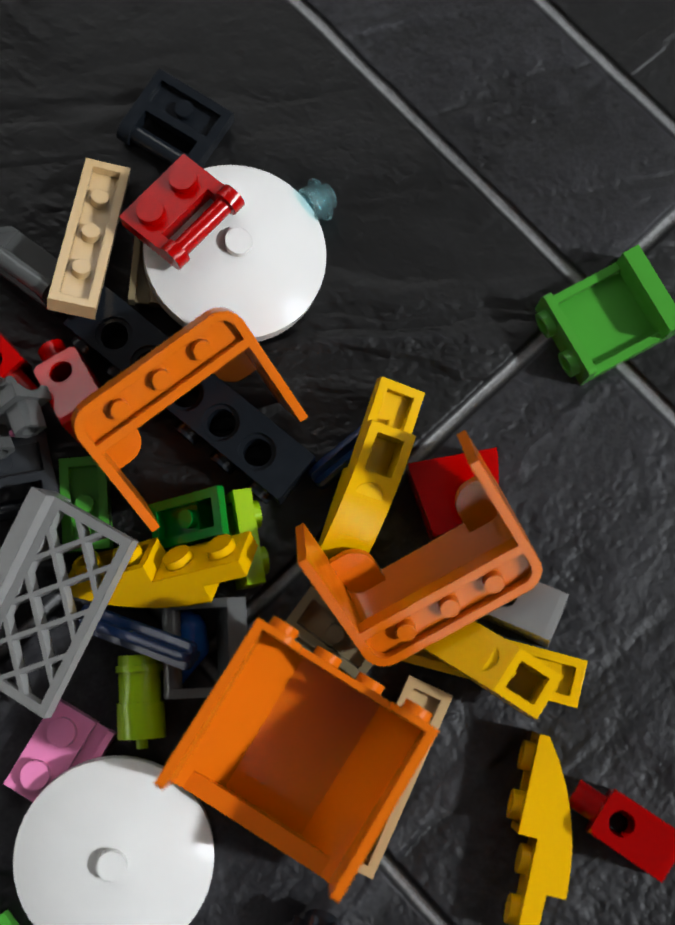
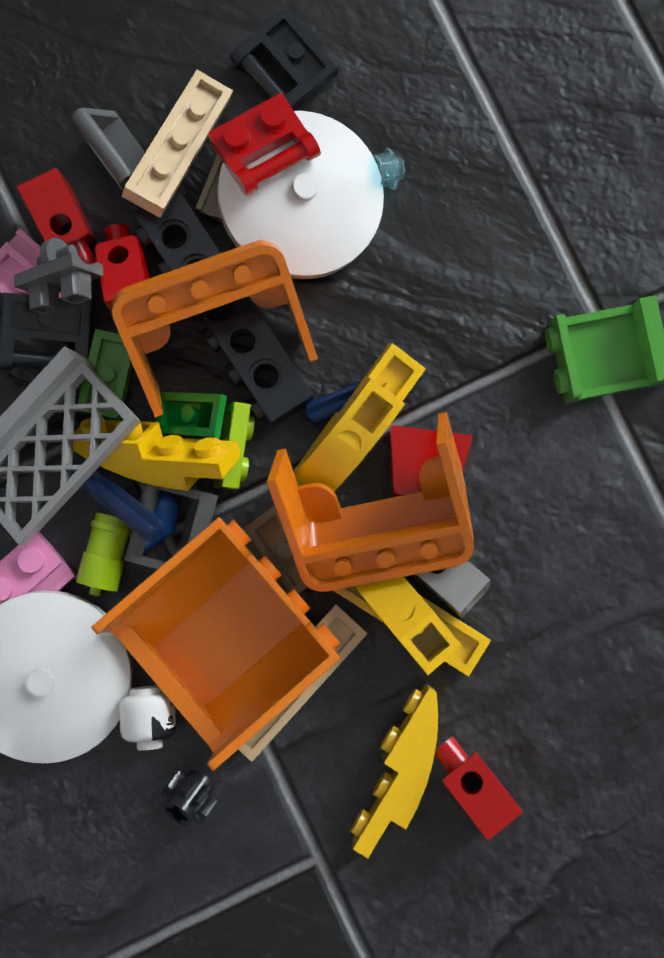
camera: 20 degrees right, 5 degrees up
(241, 866) = (147, 717): none -> white head

